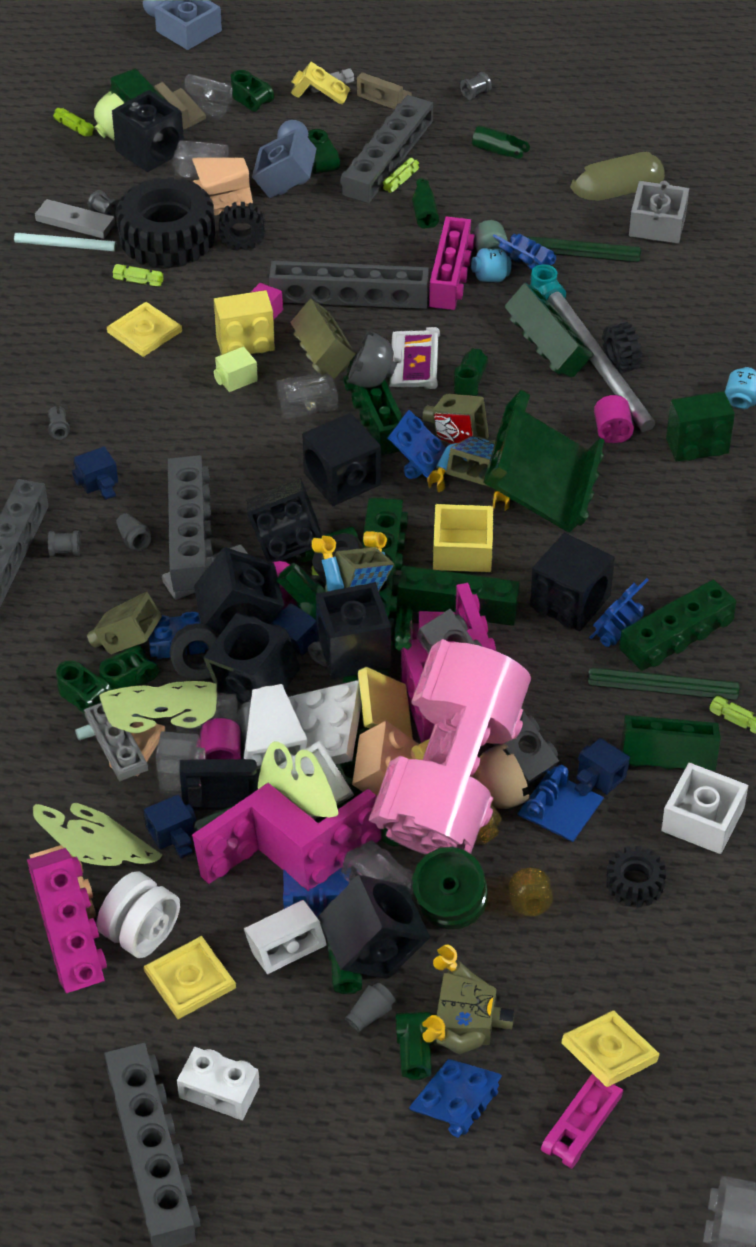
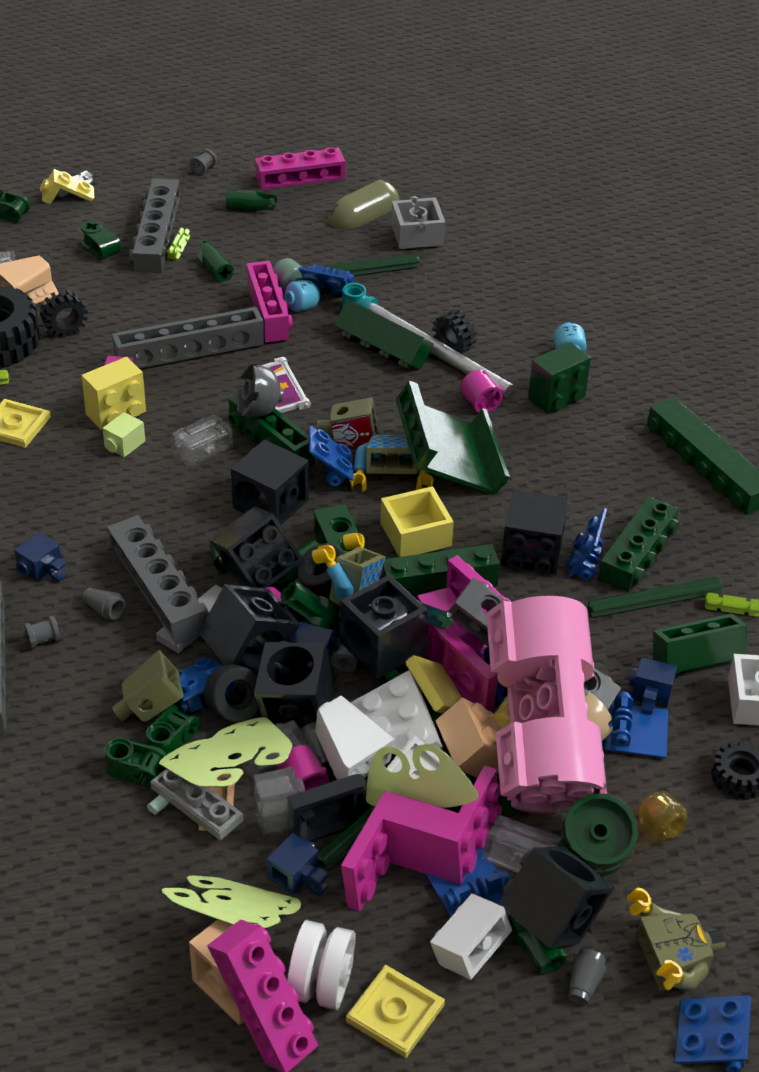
camera: 25 degrees left, 5 degrees down
(285, 159) = (74, 251): sand blue brick -> none
(322, 339) = (195, 388): olive brick -> none
(380, 90) = (124, 182): dark tan panel -> none
(414, 1051) = (644, 990): dark green piece -> none
(469, 372) = (335, 385): dark green piece -> none
(572, 117) = (299, 168): none -> dark pink brick

